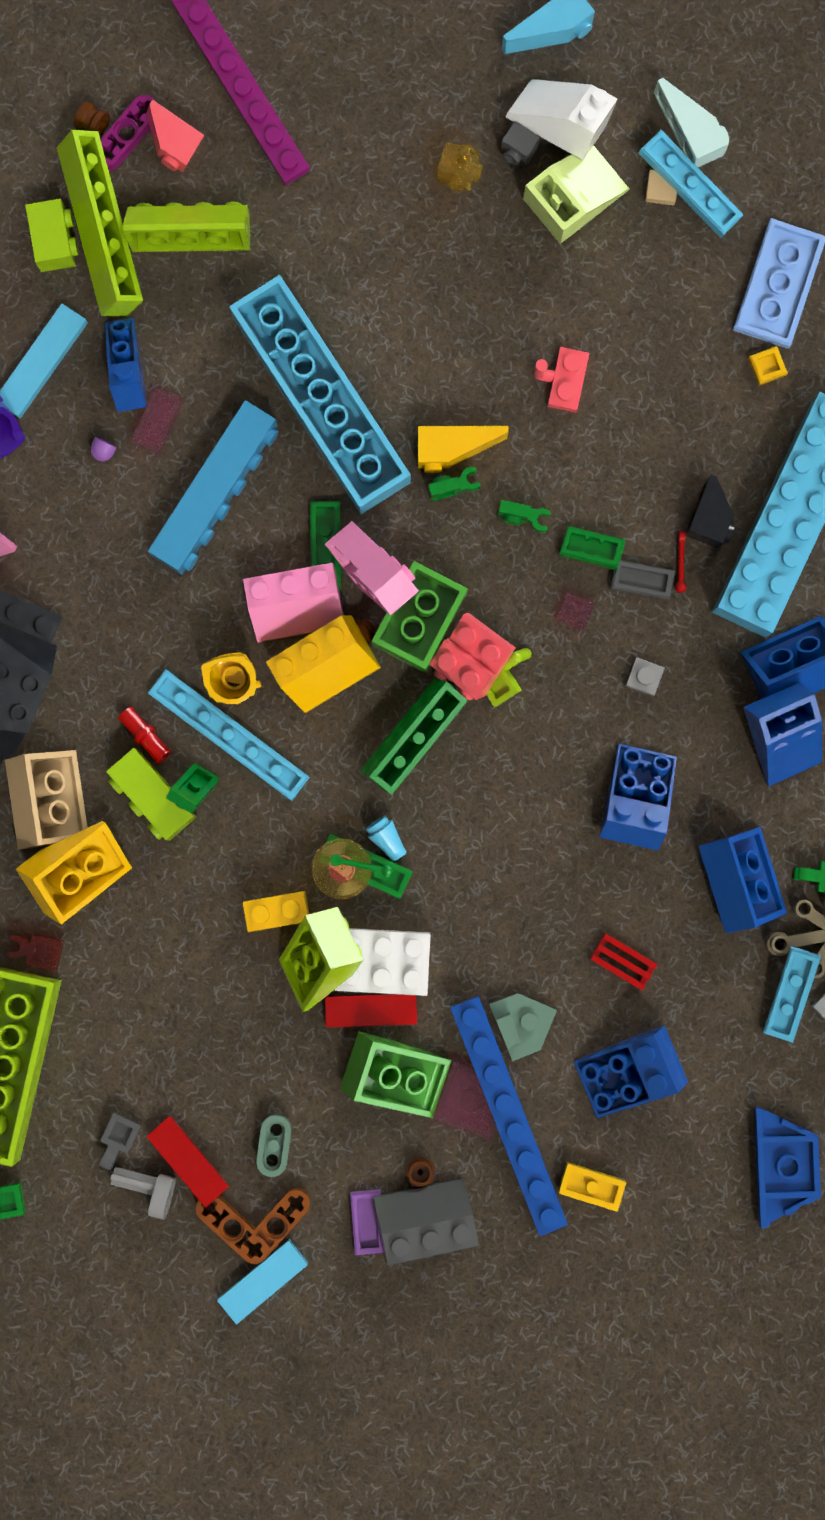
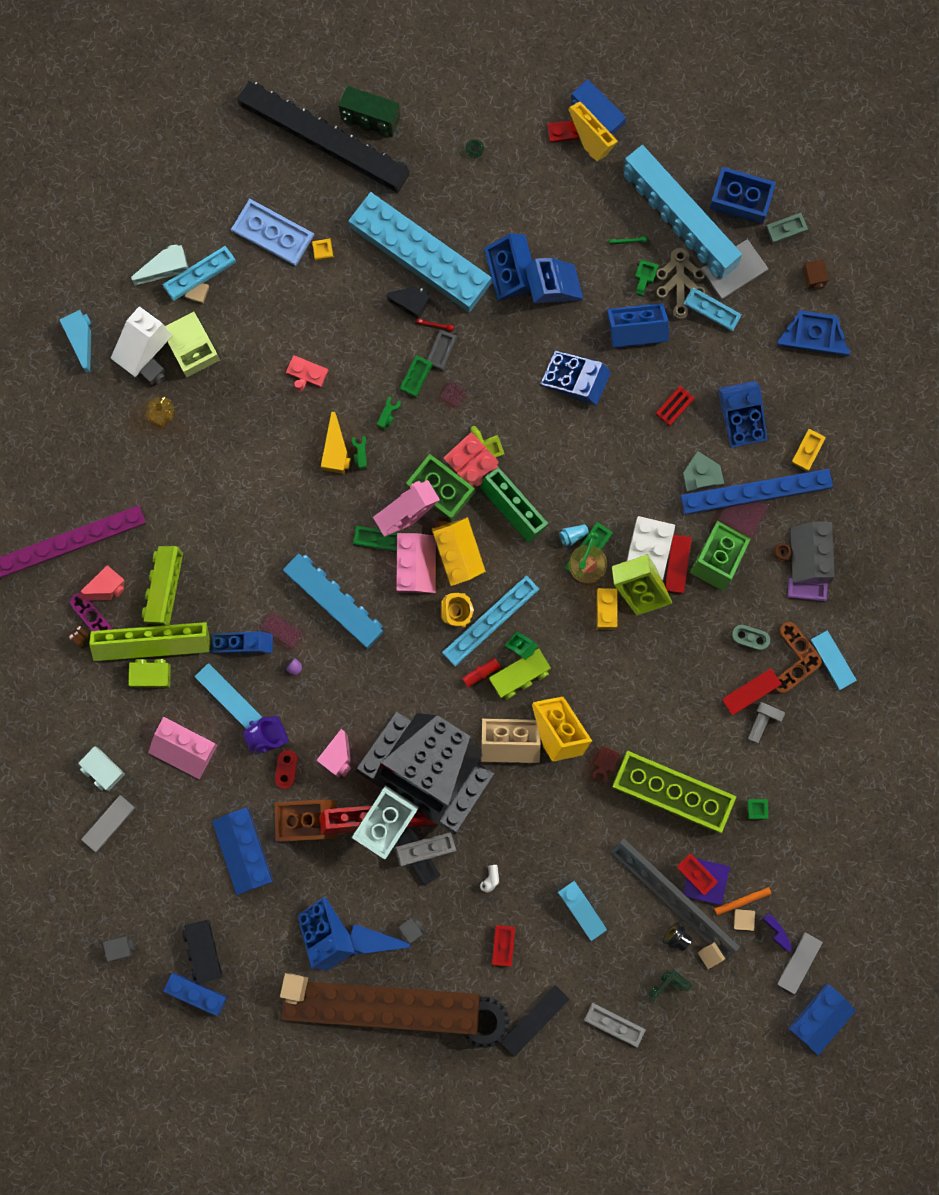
camera: 75 degrees left, 5 degrees down
(119, 1136) = (729, 731): dark grey plate -> none
(320, 394) = (288, 523): medium azure brick -> none
(644, 676) = (502, 360): light grey plate -> none

